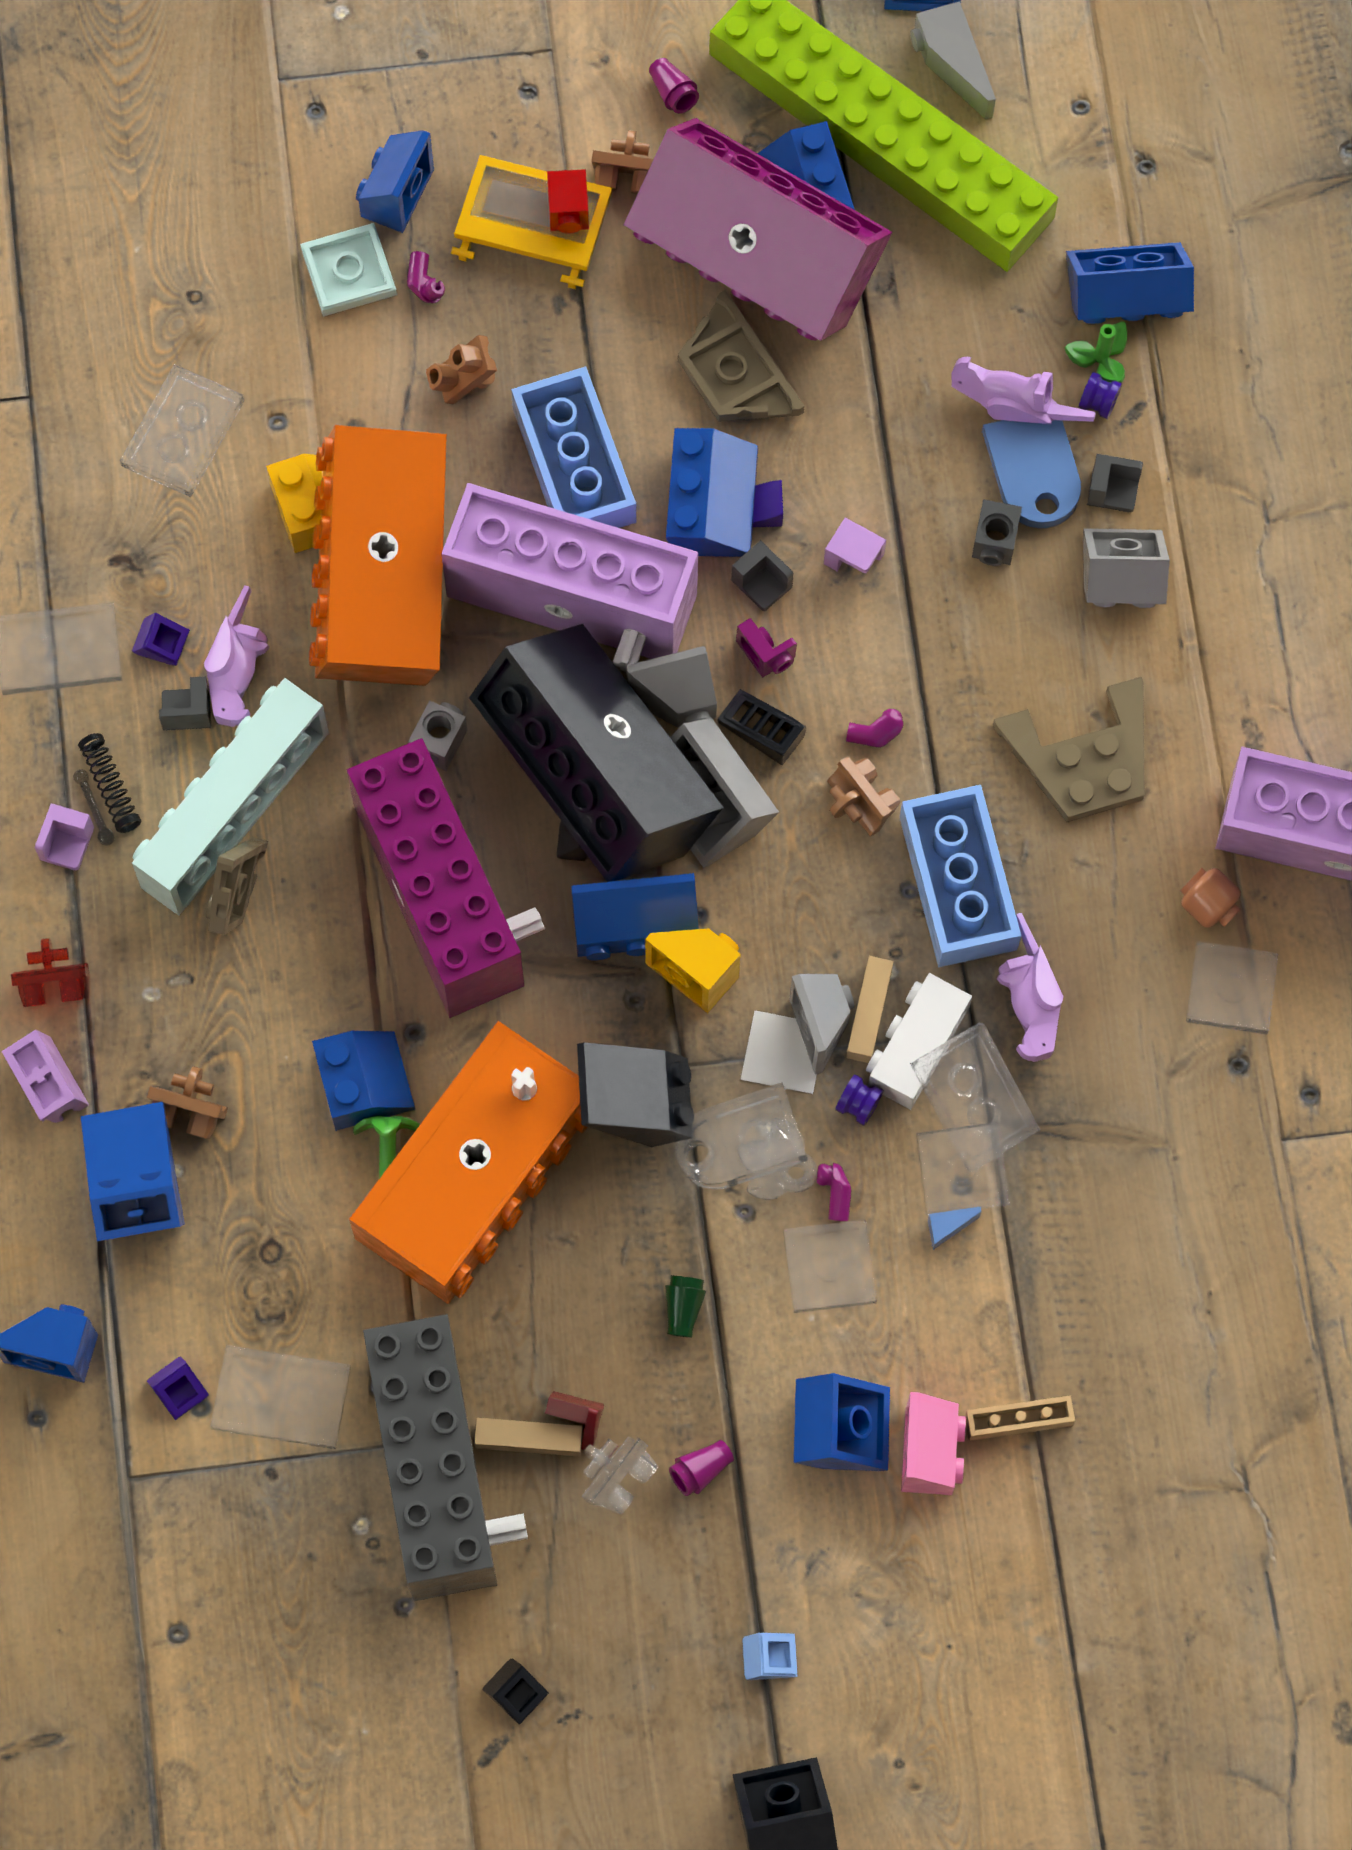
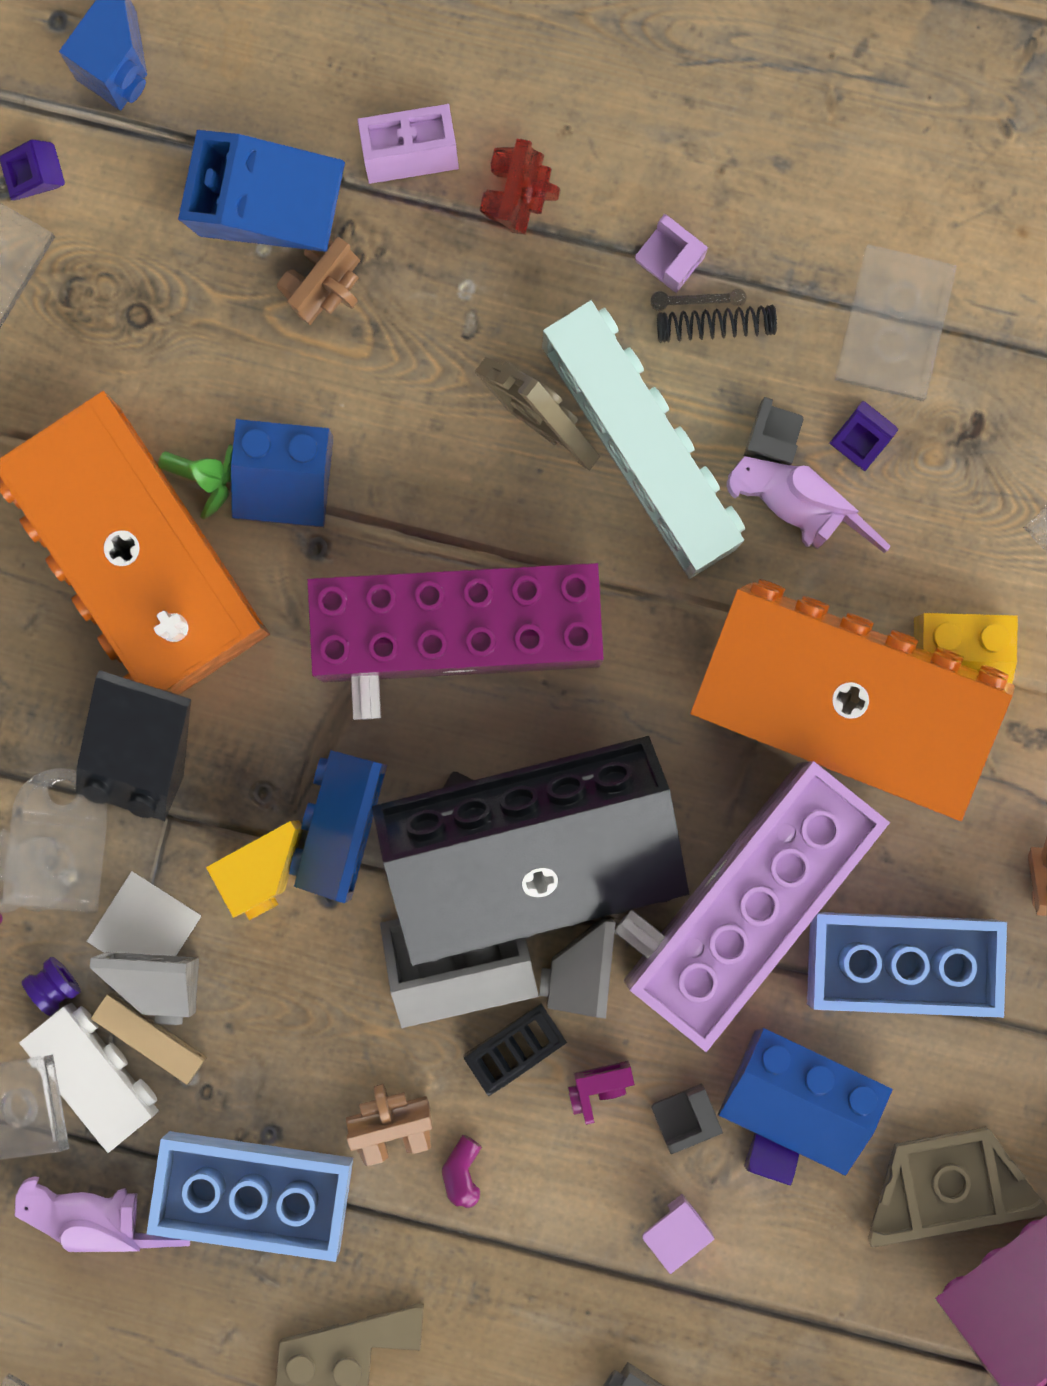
camera: 110 degrees right, 15 degrees up
(444, 715) = (634, 672): light grey brick -> none

